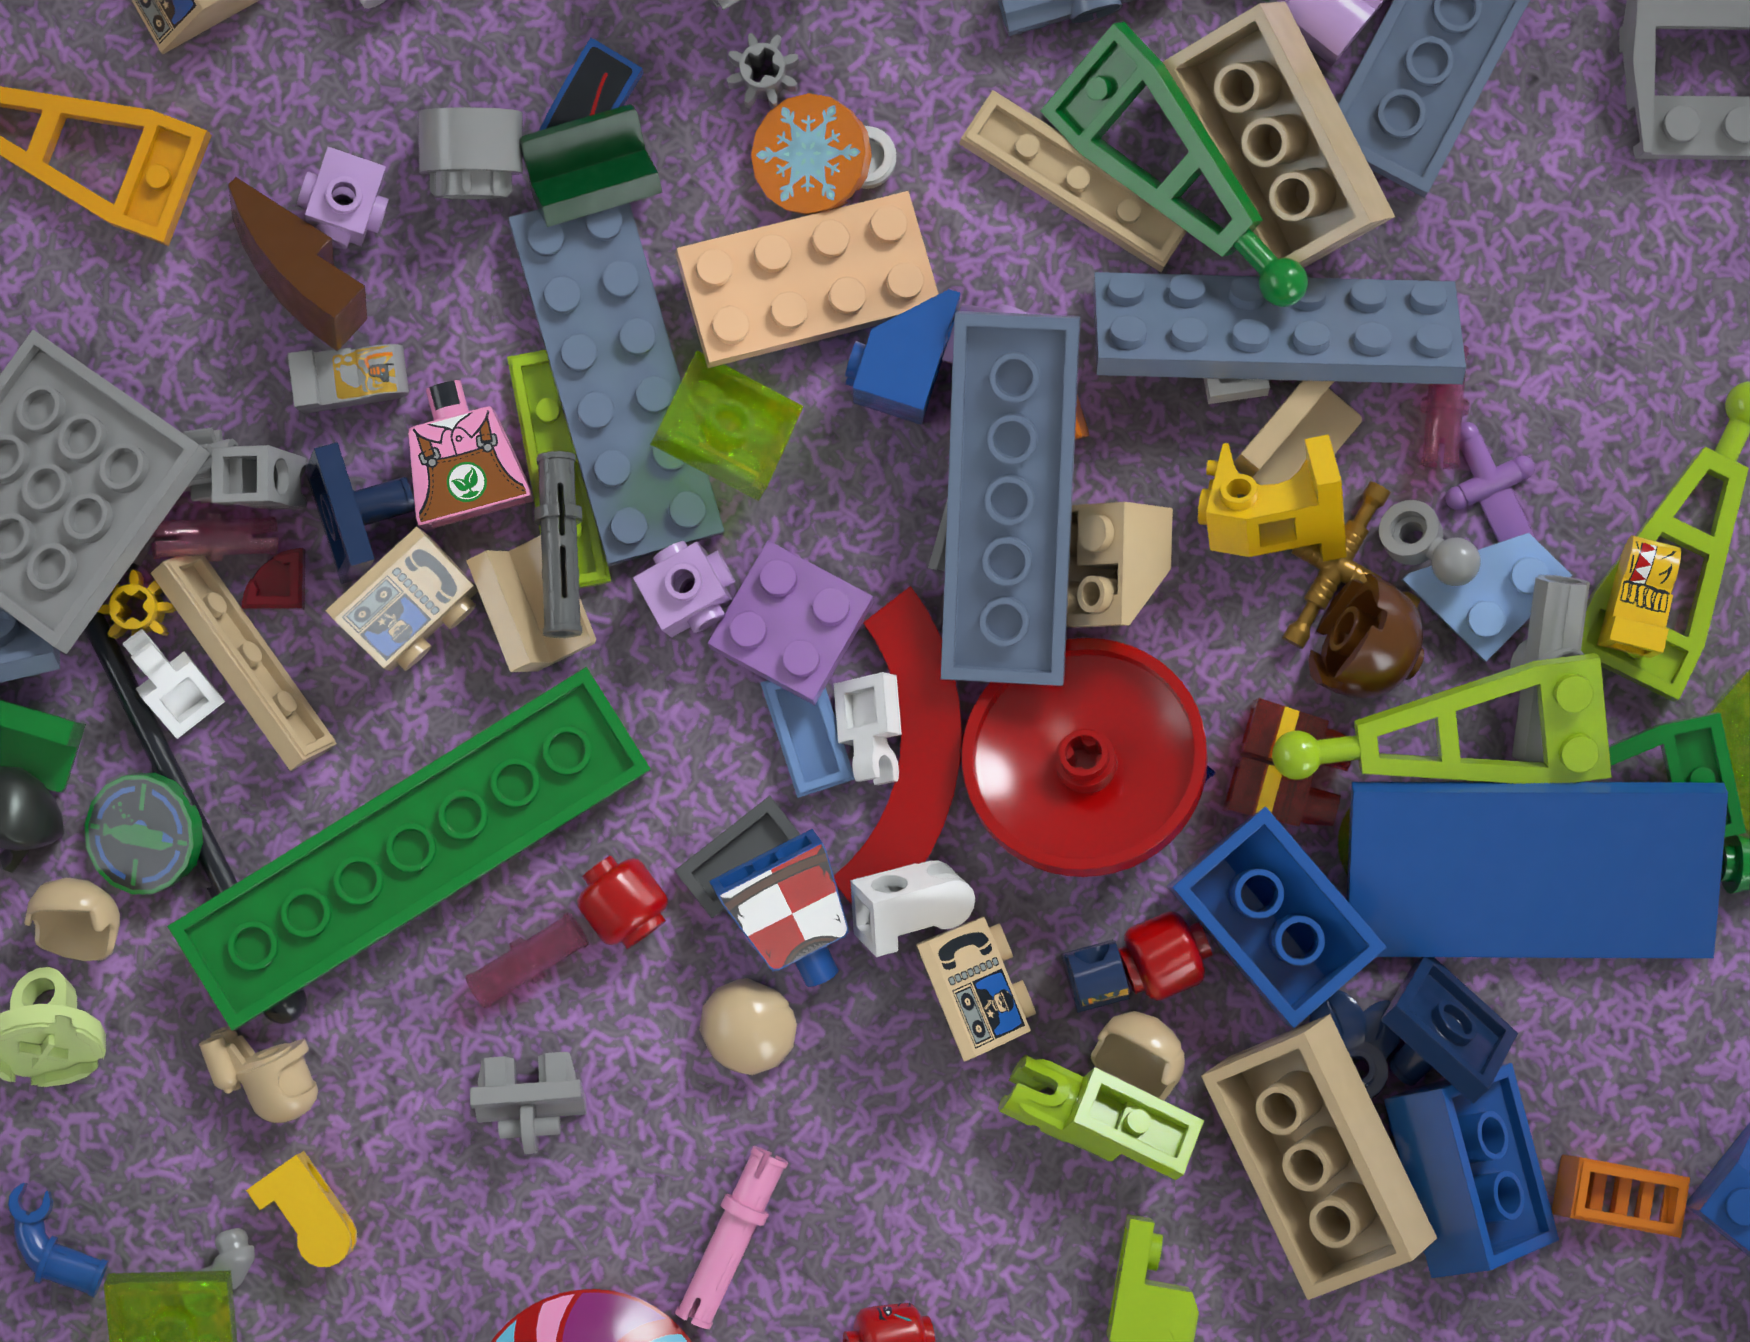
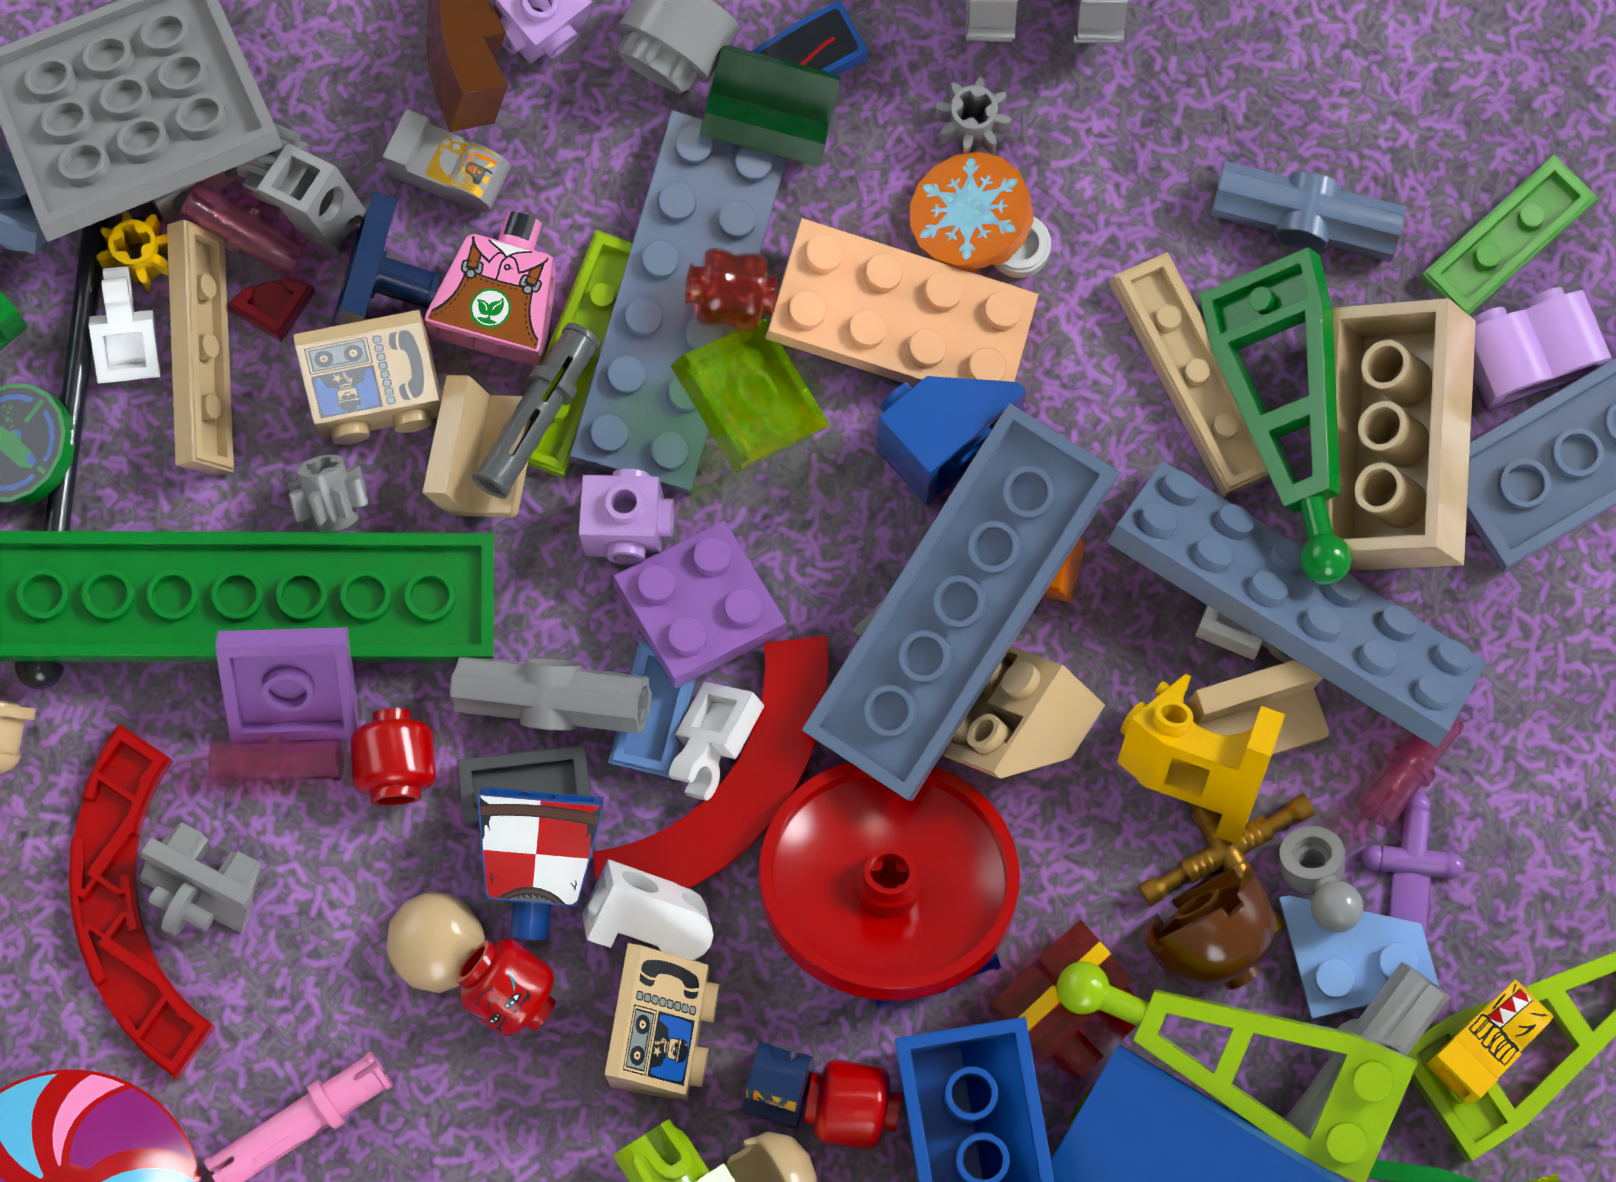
camera: 30 degrees right, 10 degrees down
(429, 716) = (327, 493): none -> light grey gear
(464, 1158) = (108, 908): none -> red tile
(500, 895) = (287, 684): none -> medium lavender plate
(658, 346) = (731, 289): none -> clear red piece
(718, 772) = (551, 694): none -> light grey piece
(832, 1031) = (506, 987): none -> red head

